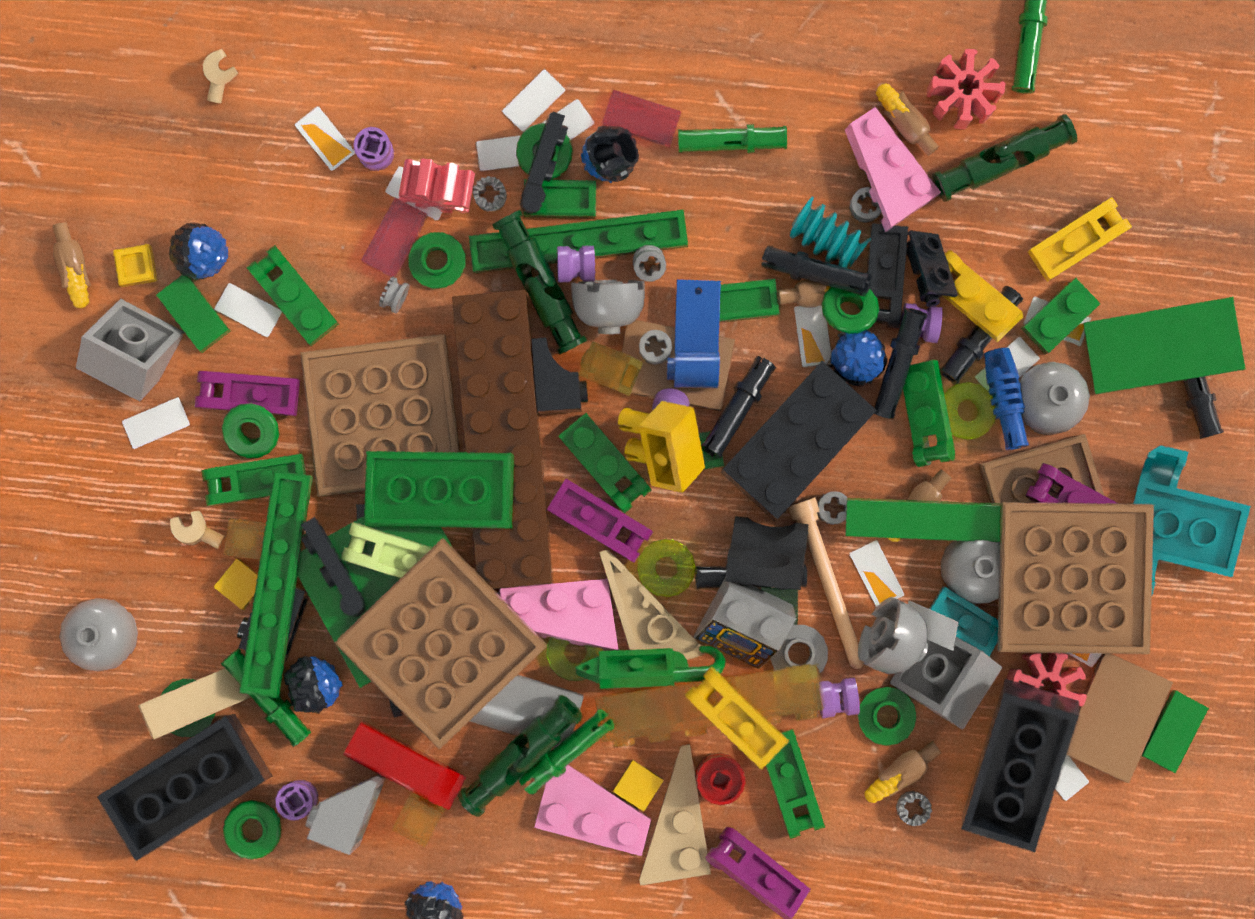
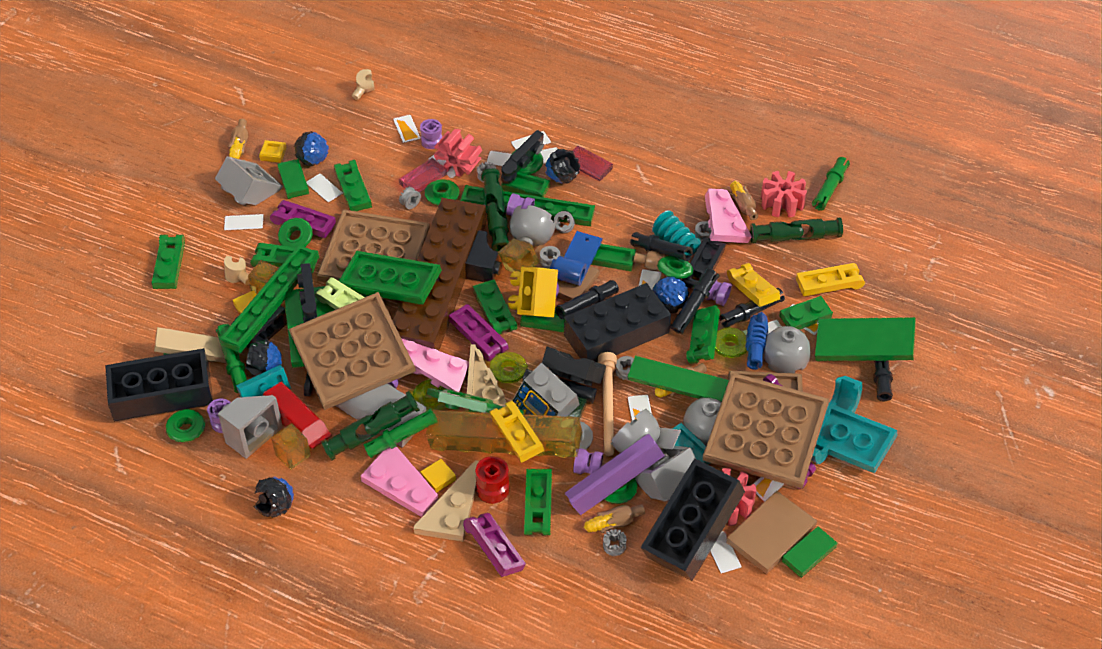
camera: 20 degrees right, 35 degrees down
(80, 545) = (168, 262): none -> green plate
(98, 634) = (152, 303): light grey cylinder -> none
(333, 731) = (261, 383): none -> teal plate
(733, 139) = (646, 184): green pin -> none
(886, 718) = (614, 474): none -> medium lavender panel
(929, 260) = (731, 263): black hinge -> none

